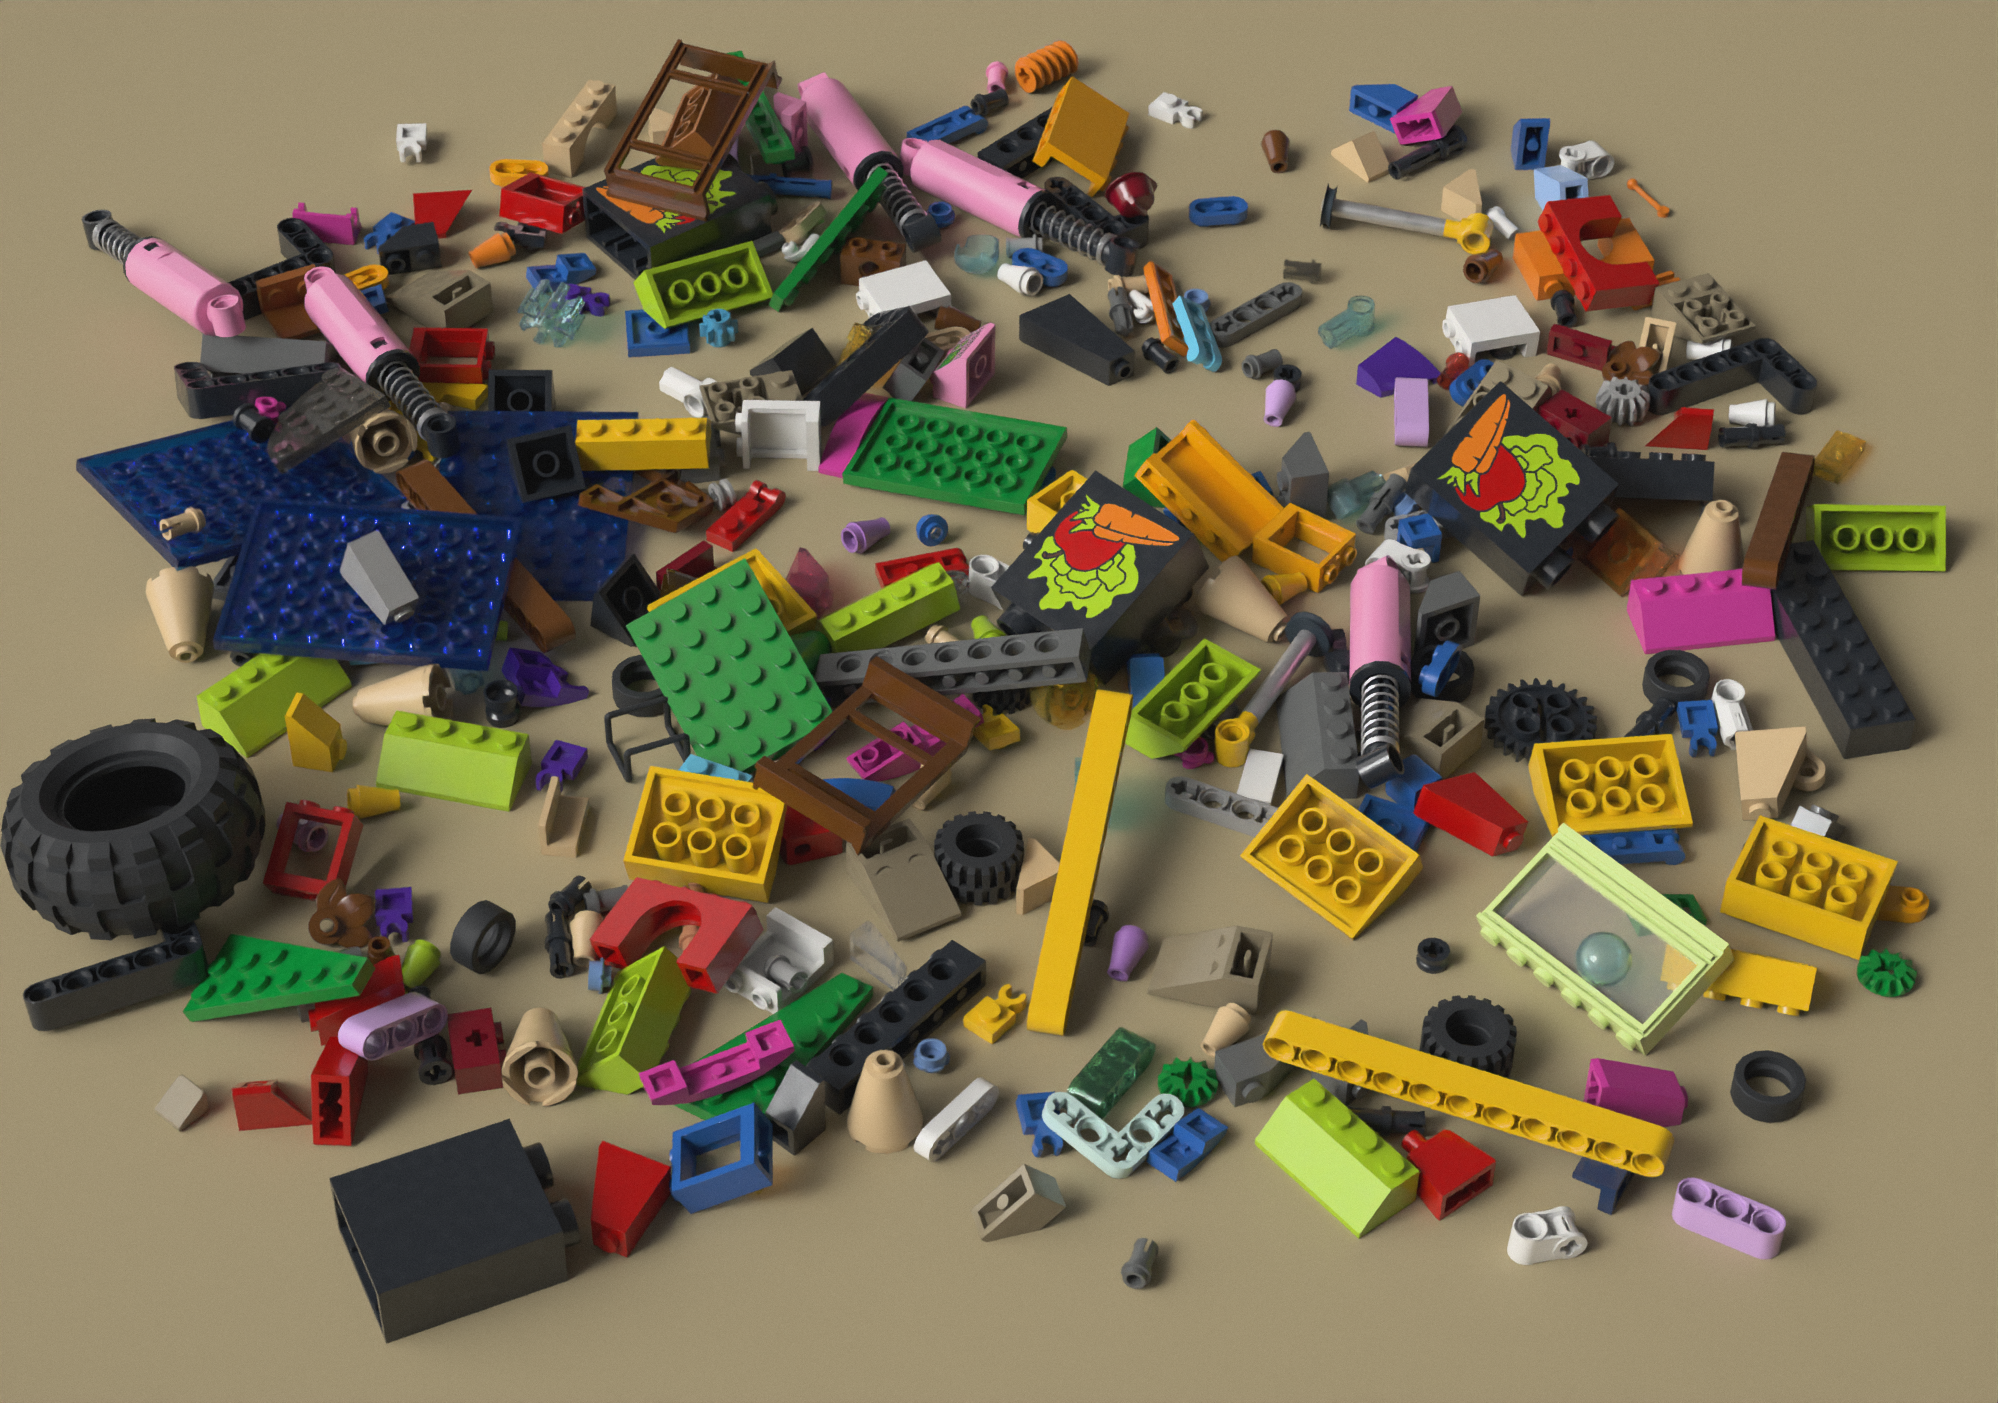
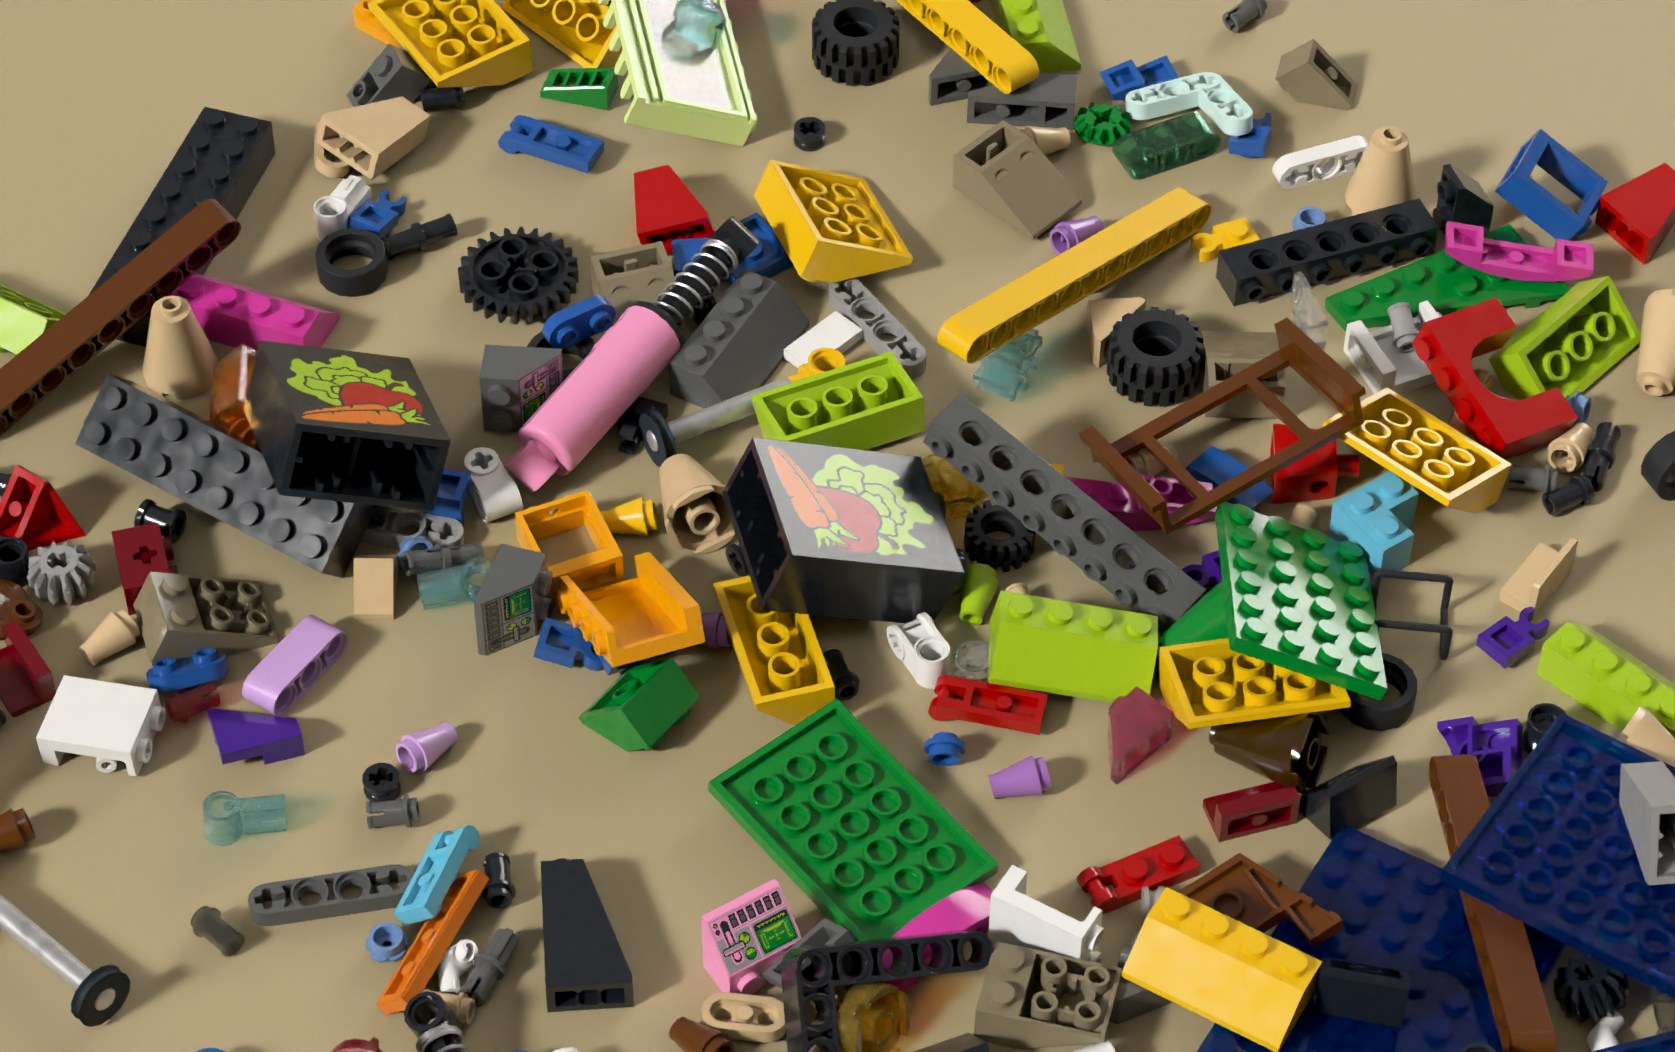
camera: 150 degrees left, 5 degrees up
(1610, 784) = (526, 181): yellow slope -> none

